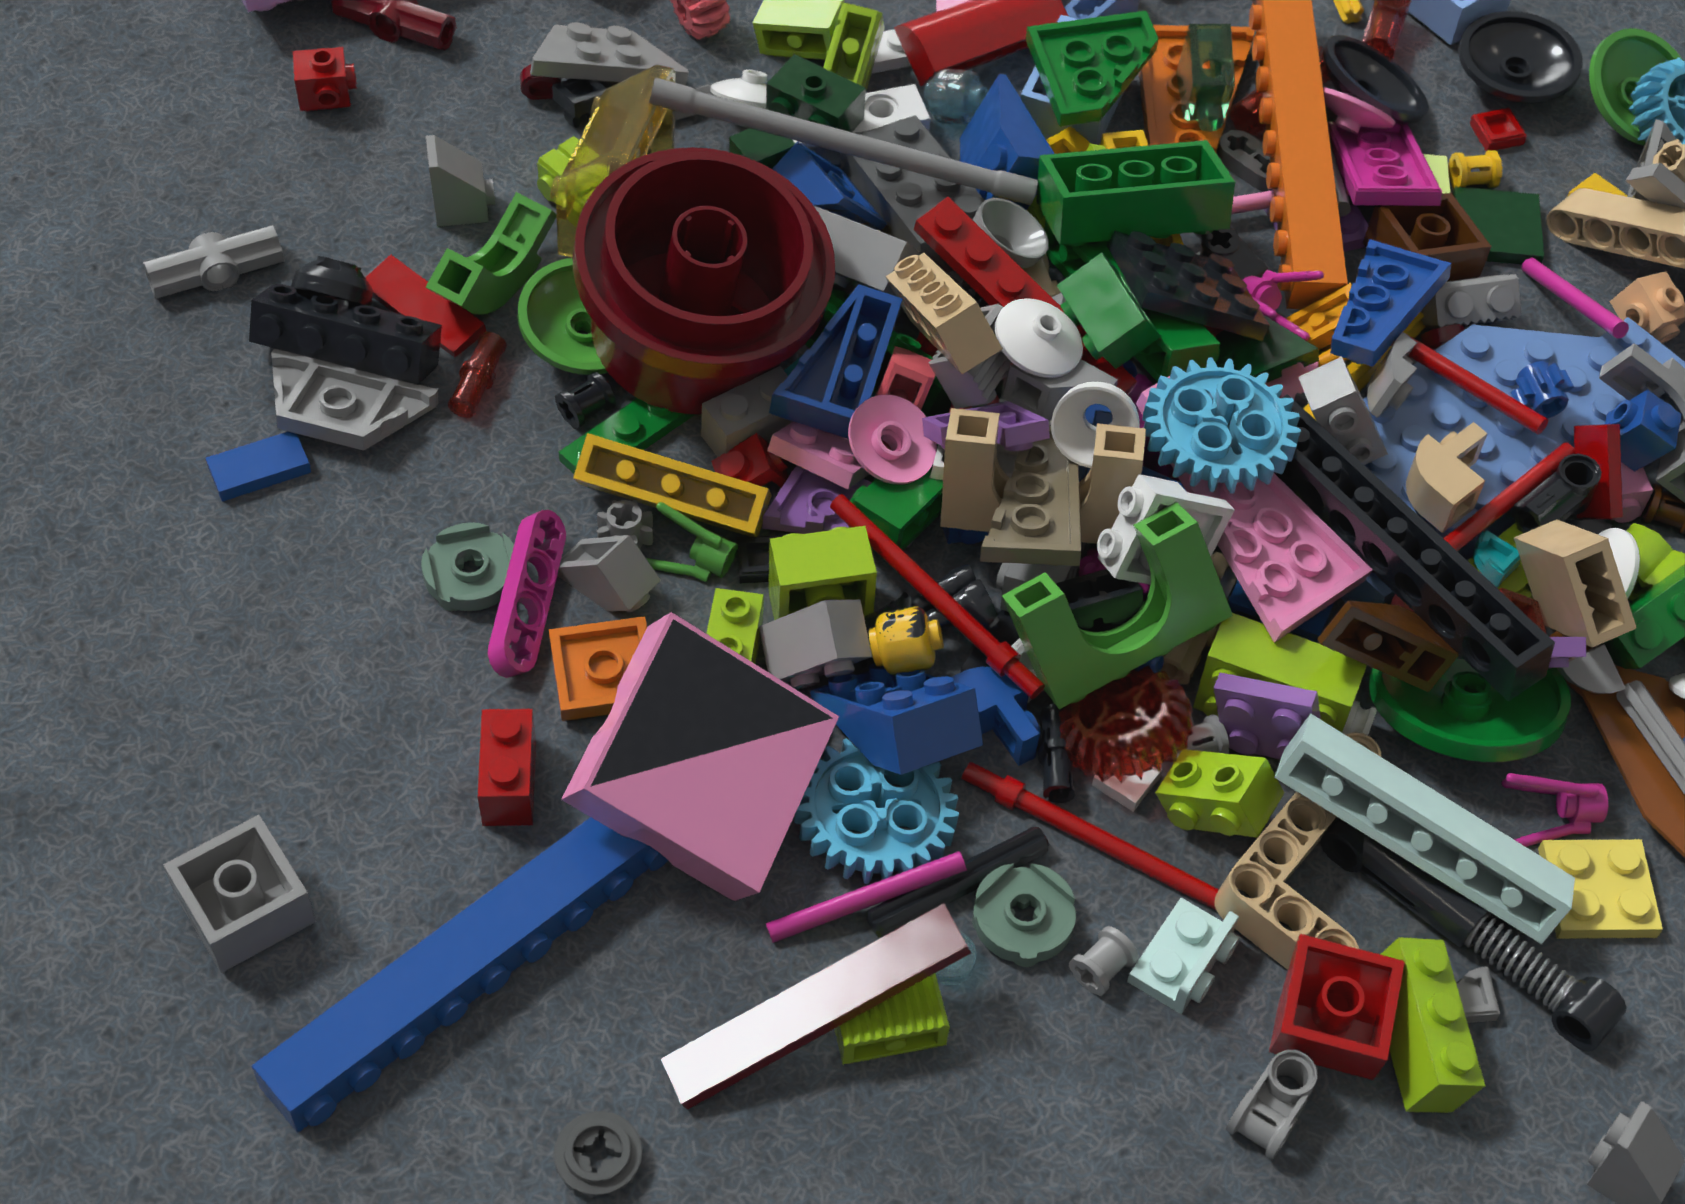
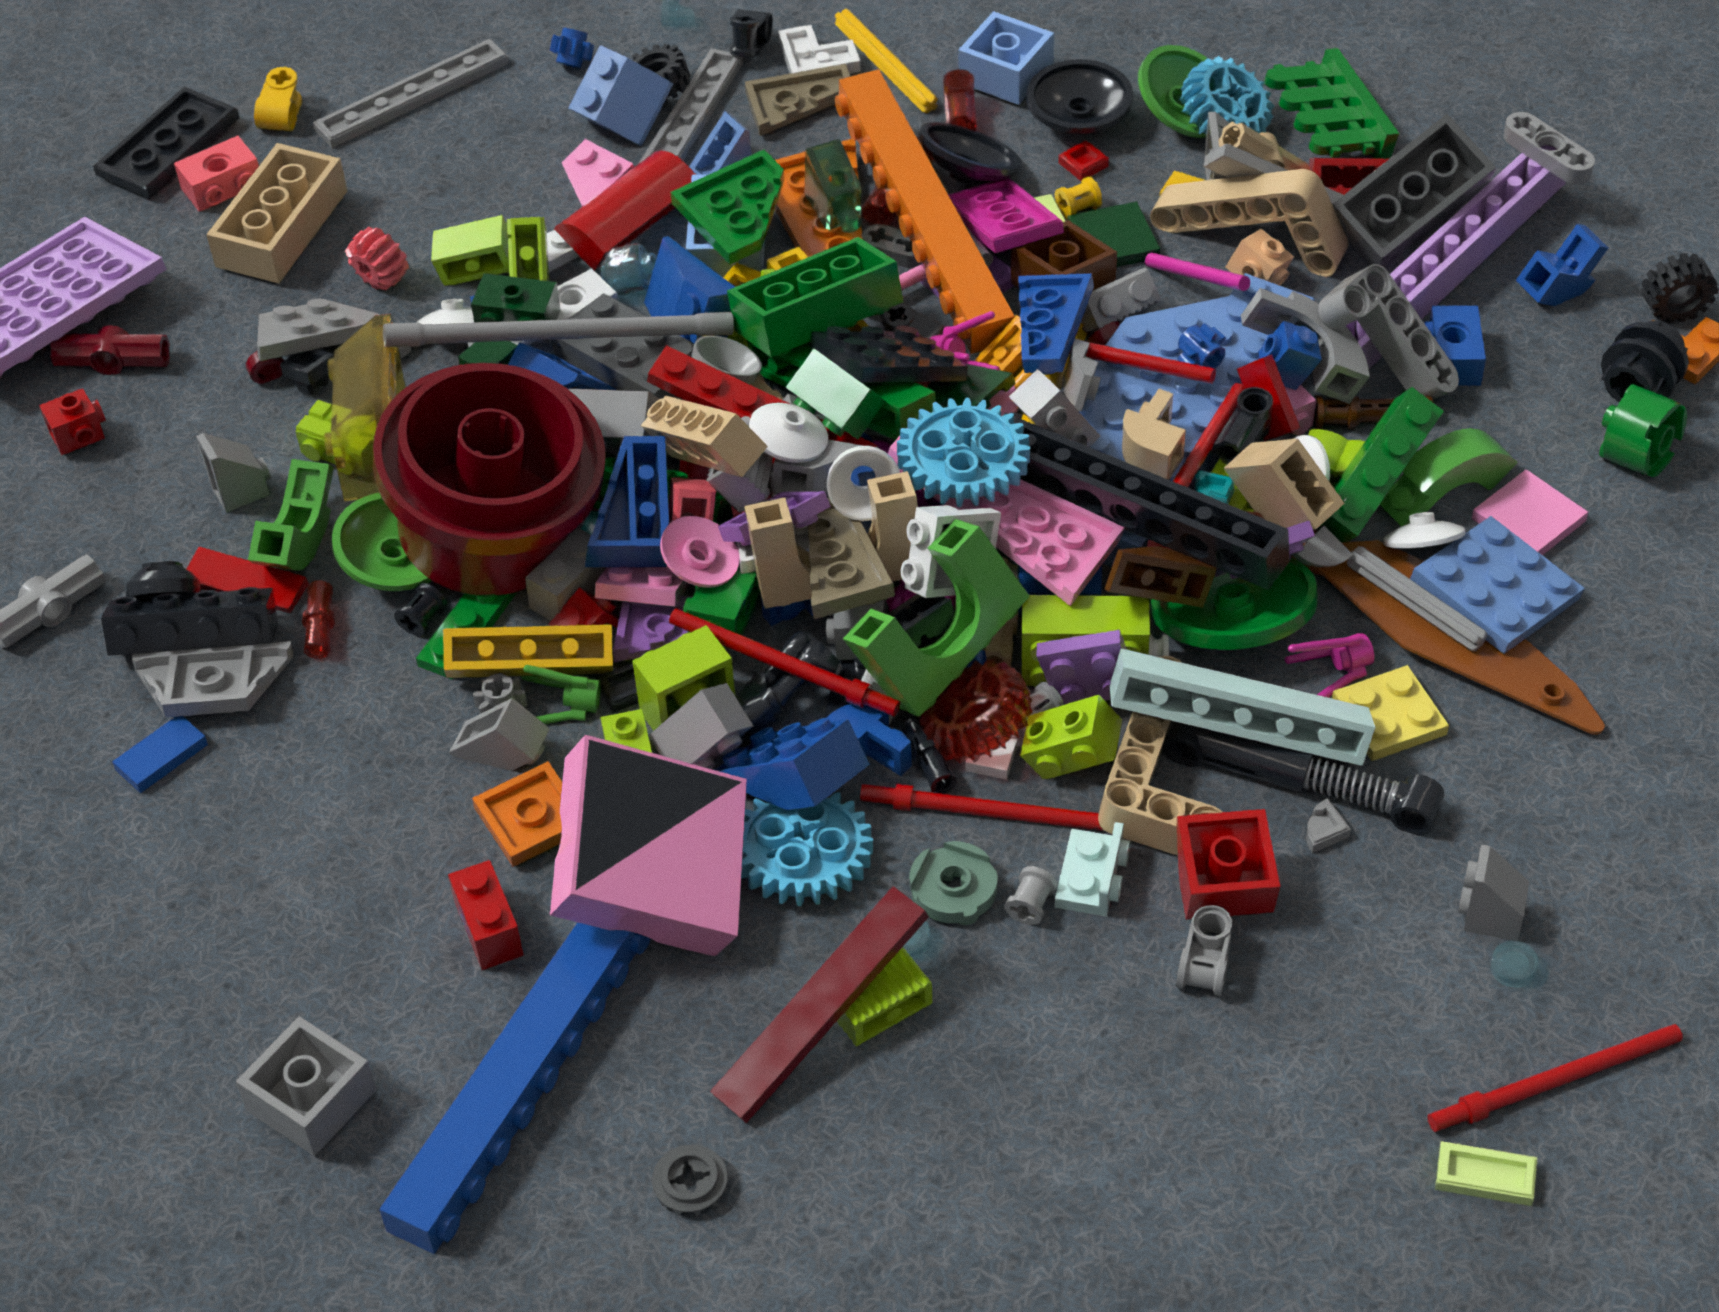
camera: 15 degrees left, 5 degrees down
(446, 558) = (386, 792): sand green plate -> none
(534, 596) = (445, 818): dark pink beam -> none
(866, 896) = (822, 913): dark pink bar -> none
(905, 640) = (774, 704): yellow head -> none
(911, 905) = (893, 873): black axle -> none
(1355, 113) = (966, 180): bright pink dish -> none
(1430, 1031) = (1306, 860): lime brick -> none

